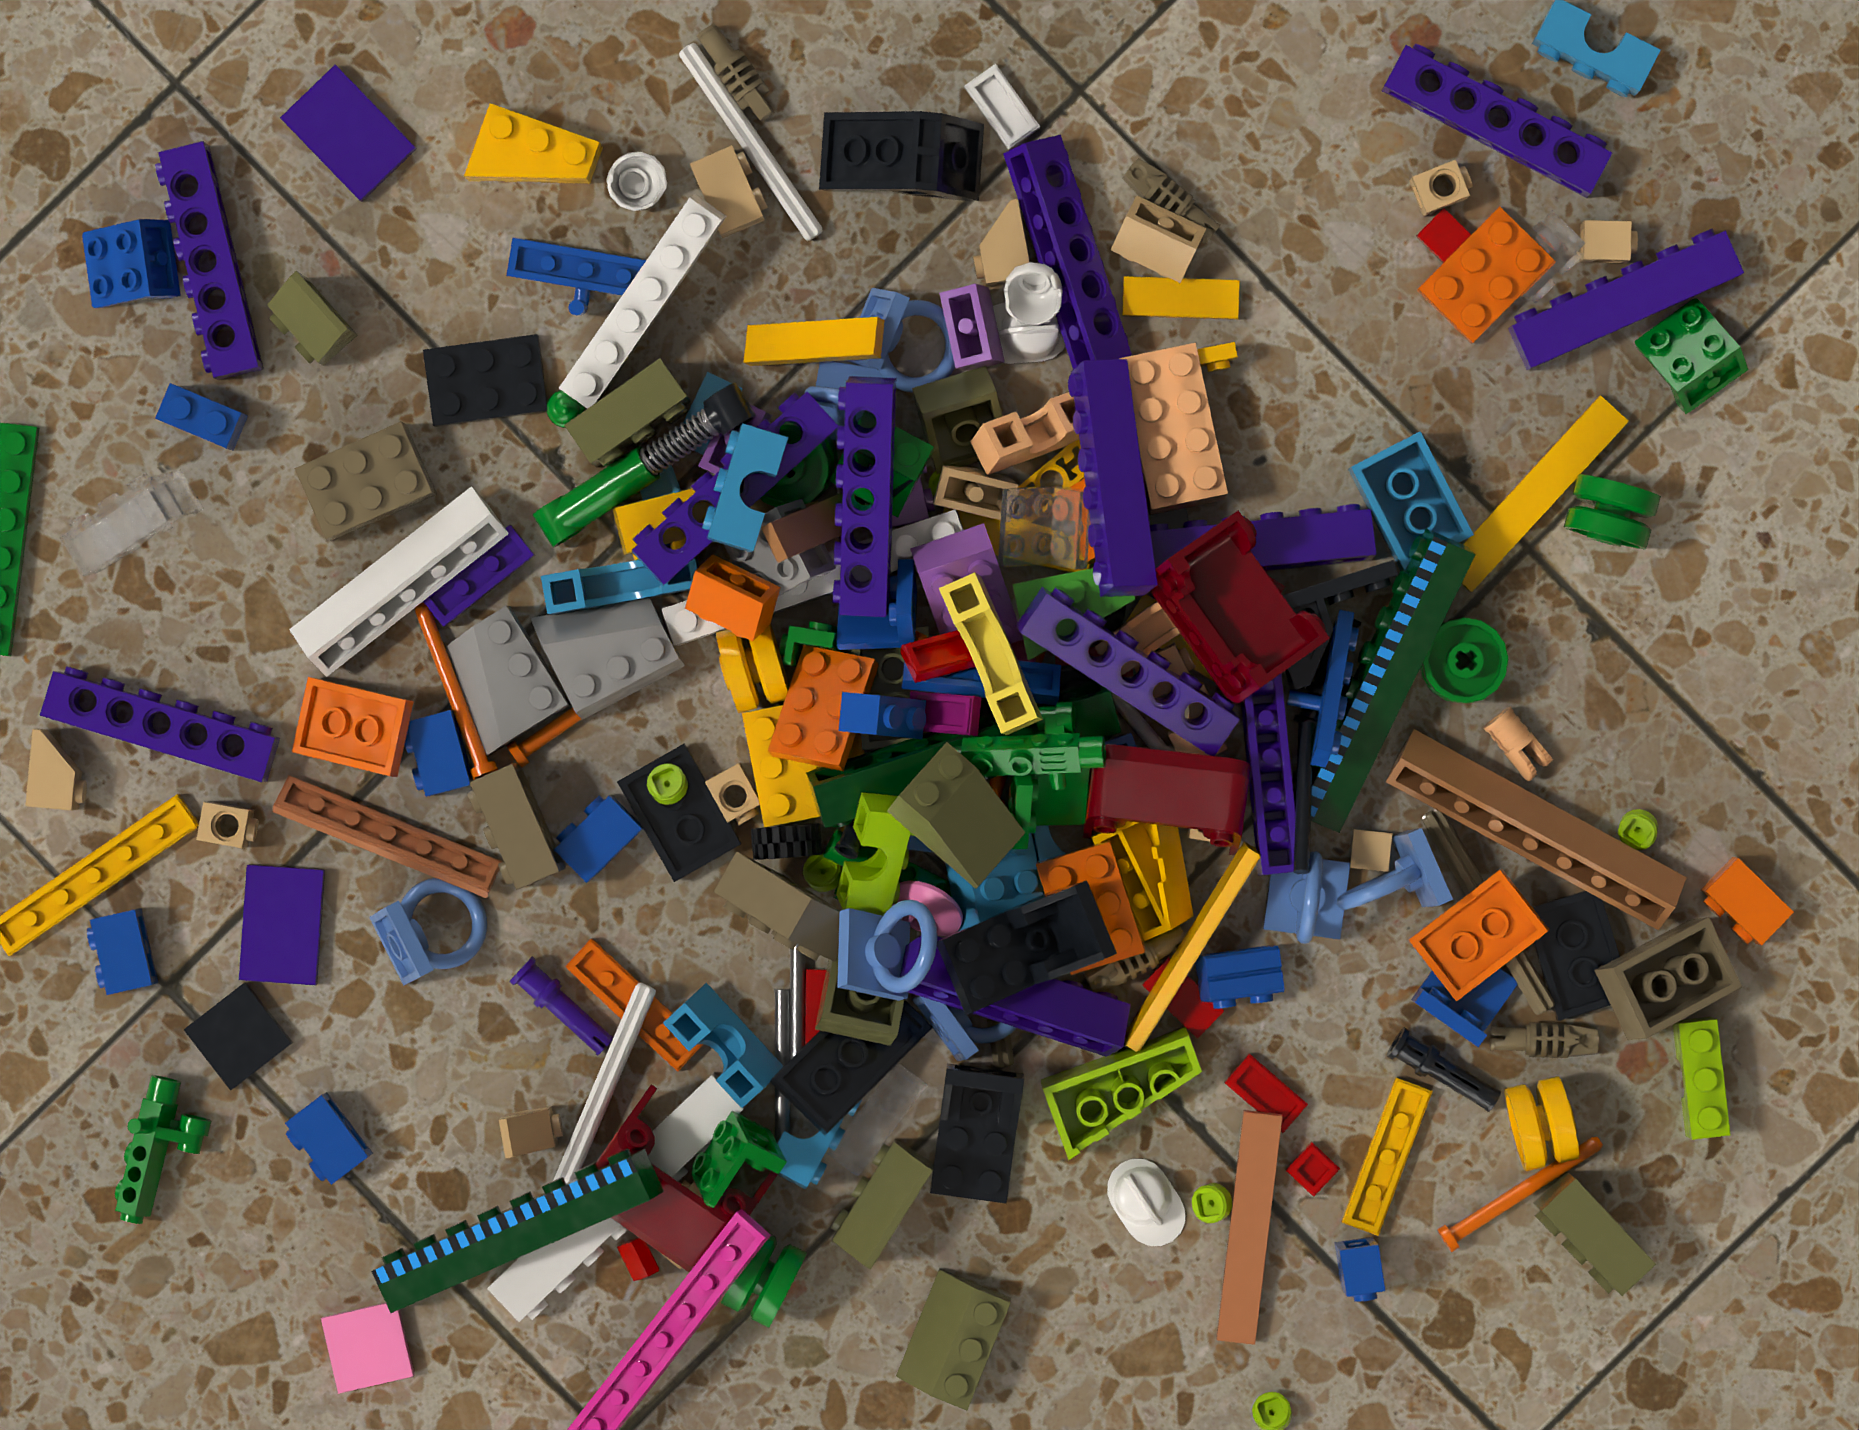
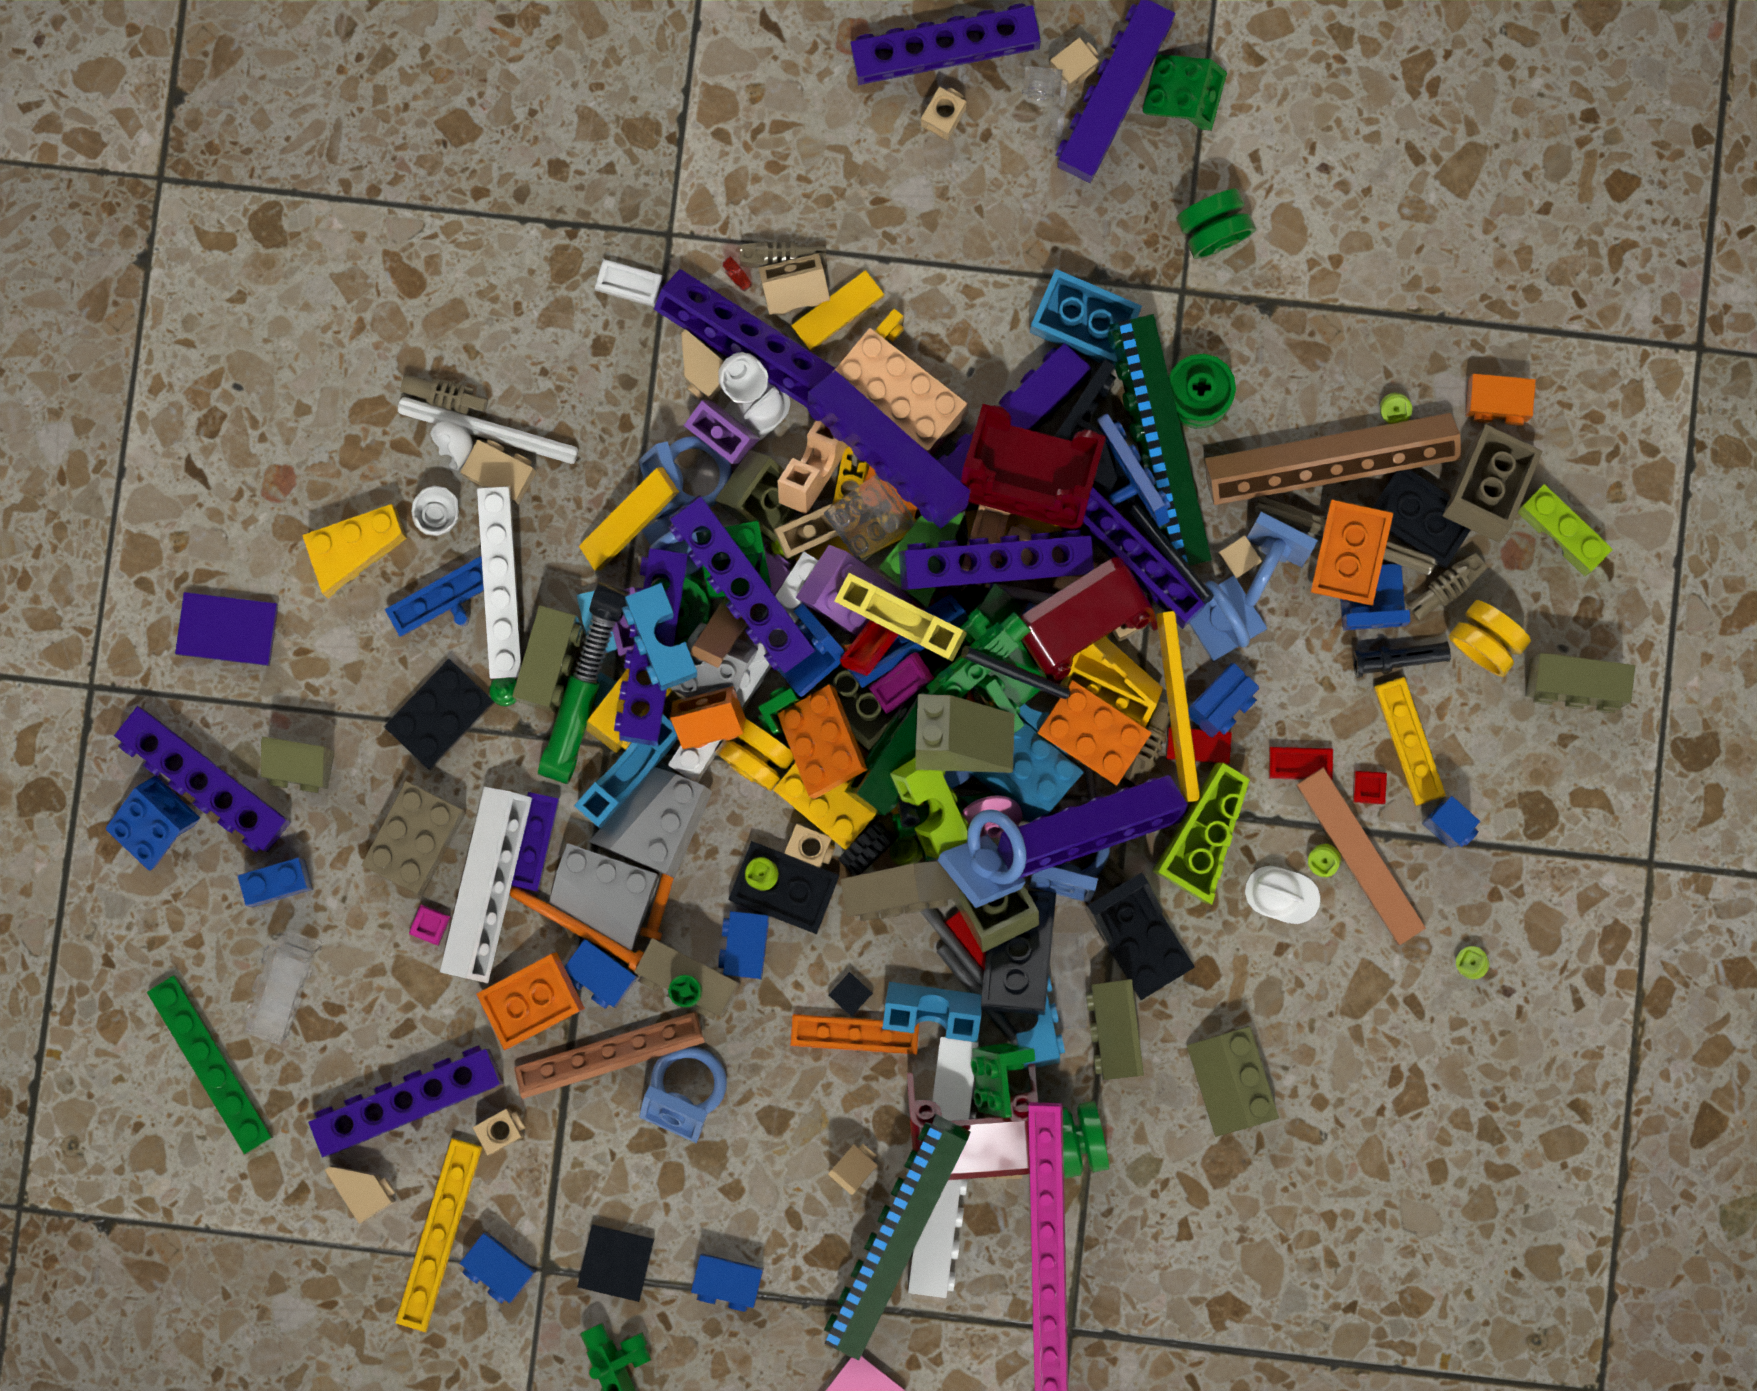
camera: 30 degrees left, 5 degrees down
(281, 924) = (586, 1167): dark purple tile -> none
(316, 575) = (429, 925): none -> dark pink tile
(497, 845) = (680, 989): none -> green wheel
(548, 994) = (794, 1072): dark purple pin -> none
(606, 1082) = (876, 1096): white axle -> none
(638, 1258) = (989, 1195): red tile -> none
(661, 963) = (850, 994): none -> black tile
(708, 126) = (452, 441): none -> white hair
(882, 715) = (863, 714): blue brick -> none
(902, 154) = (588, 357): black bracket -> none
(1026, 946) = (1074, 784): black bracket -> none
(1057, 794) = (1015, 672): none -> black bar
(1111, 184) = (736, 274): none -> clear red tile
(1443, 235) = (970, 141): red tile -> none
(1485, 275) = (1016, 145): orange plate -> none
(1512, 737) = (1276, 415): light nougat hinge -> none
(1515, 1195) = (1492, 757): orange bar -> none
(1541, 488) = (1160, 245): yellow tile -> none

